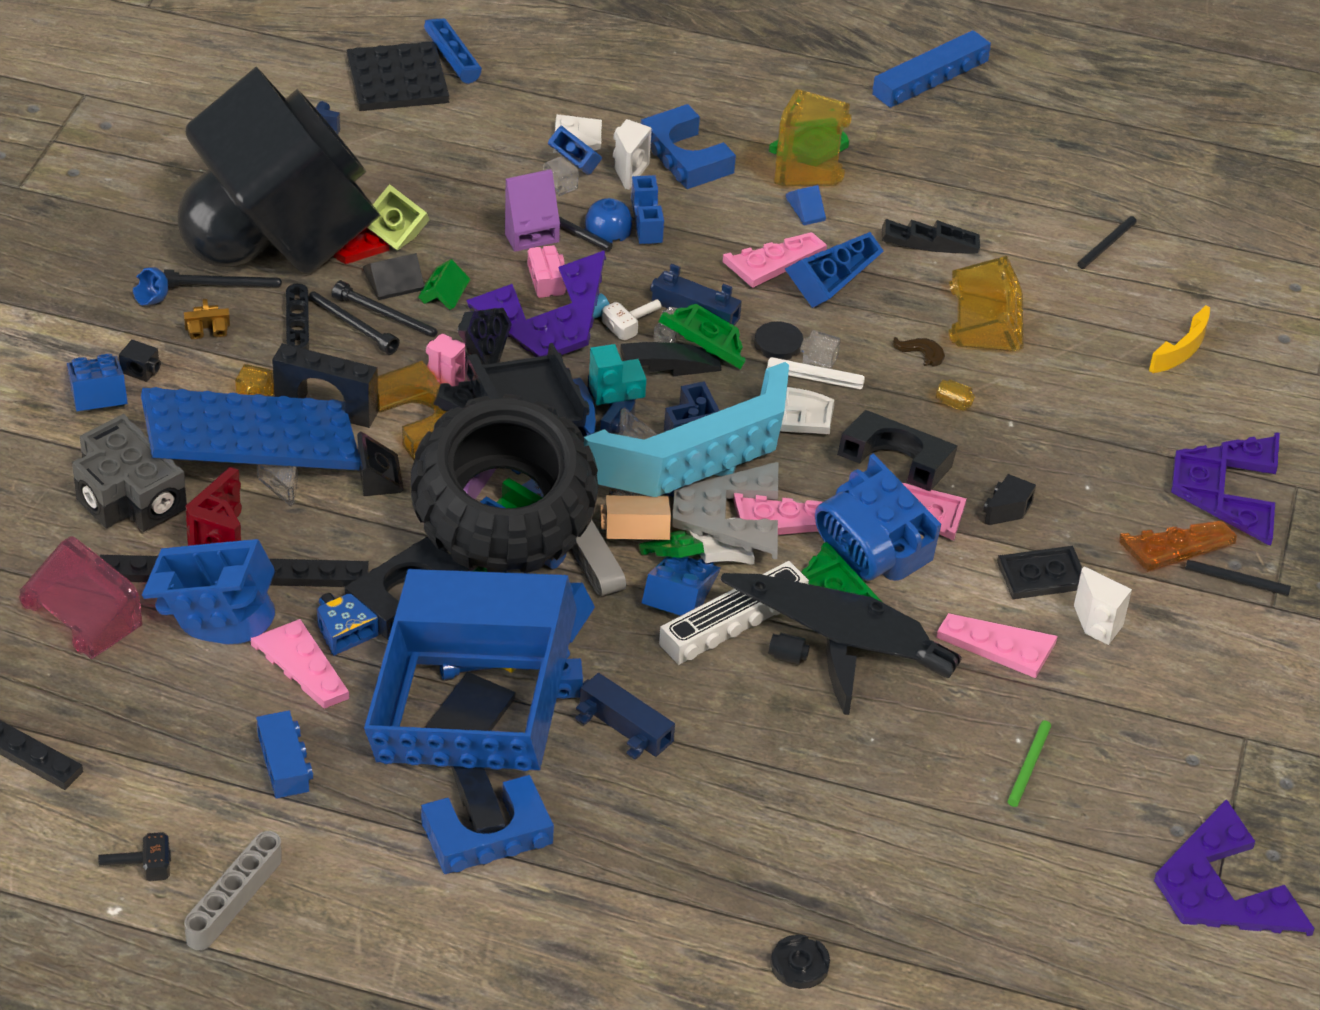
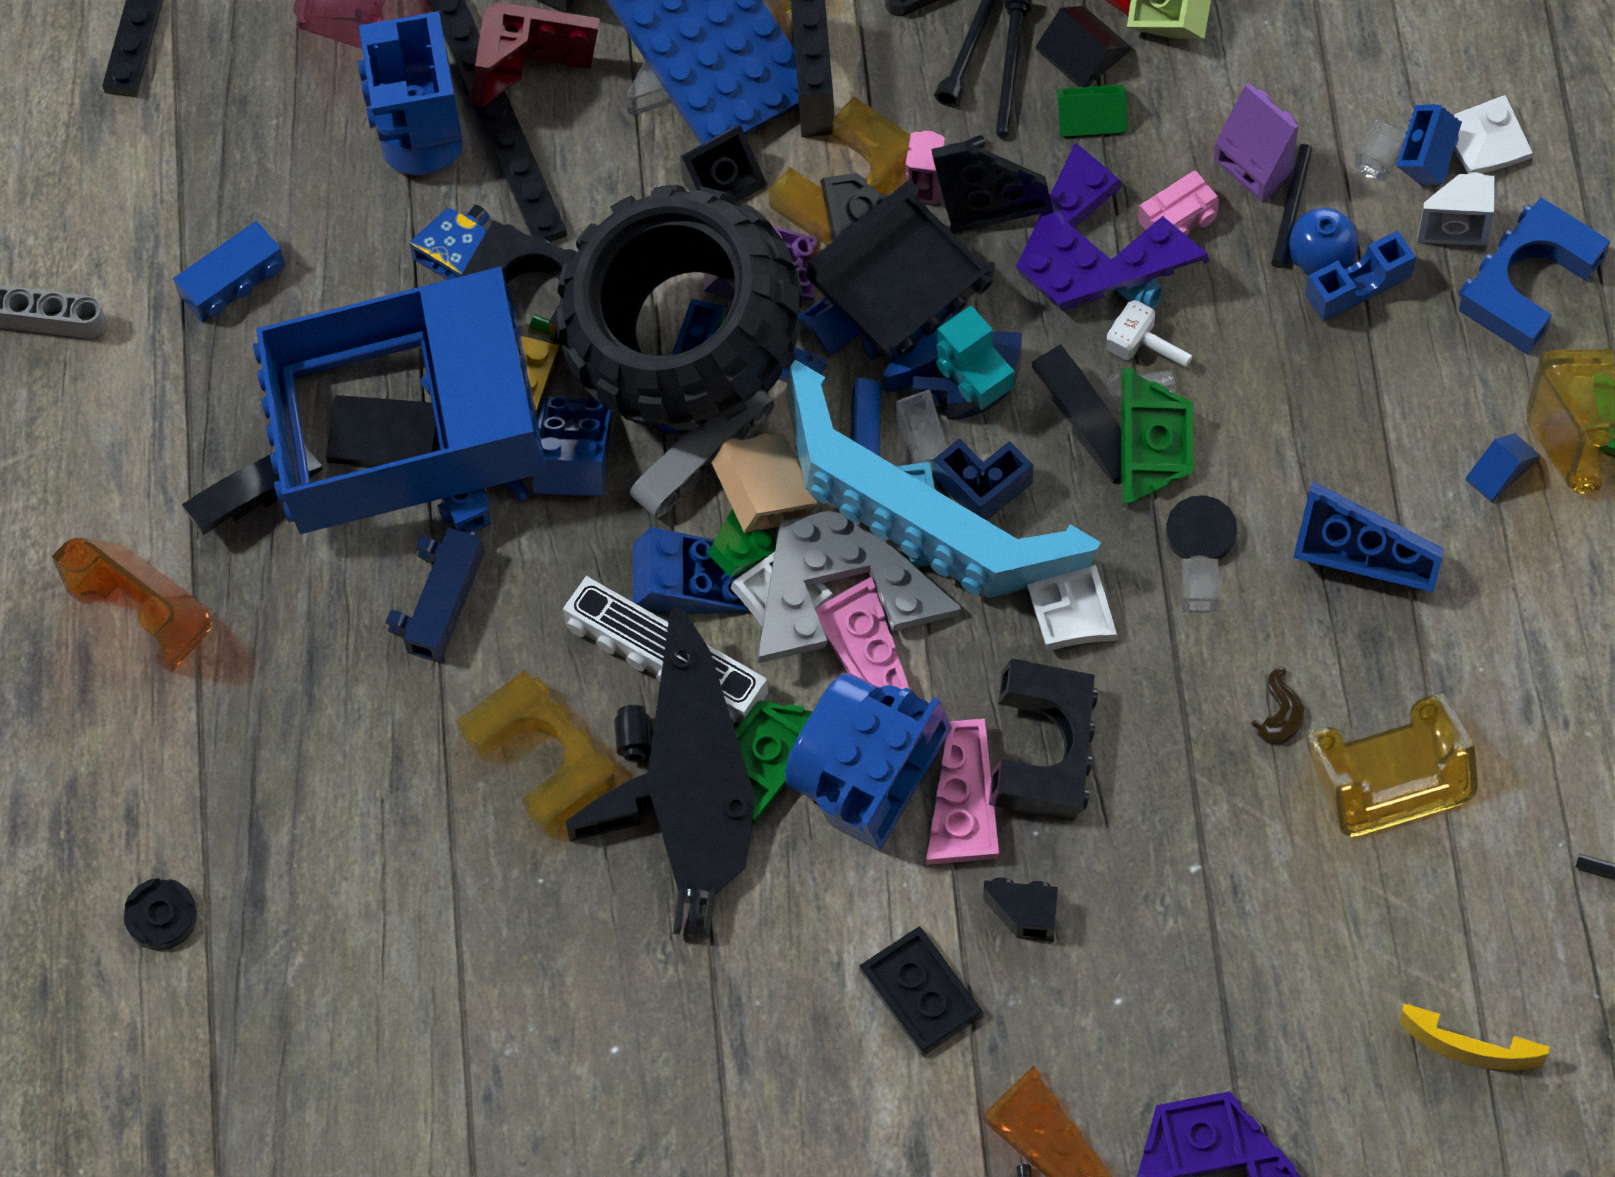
camera: 75 degrees right, 20 degrees up
(155, 857) = (36, 215): black piece -> none
(303, 661) = (386, 227): bright pink wing -> none
(462, 848) = (229, 557): blue arch -> none
(568, 867) = (166, 611): none -> clear orange windscreen
(680, 292) = (1216, 403): dark blue brick -> none
(772, 259) = (1352, 461): bright pink wing -> none
(803, 682) = (525, 707): none -> clear yellow arch
(821, 374) = (1159, 595): white axle -> none
(935, 238) = (1519, 645): black slope -> none
(955, 394) = (1199, 777): clear yellow brick -> none
(1003, 644) = (766, 981): bright pink wing -> none
(1029, 763) = (575, 1072): bright green bar -> none
(1101, 605) = (859, 1074): white slope -> none

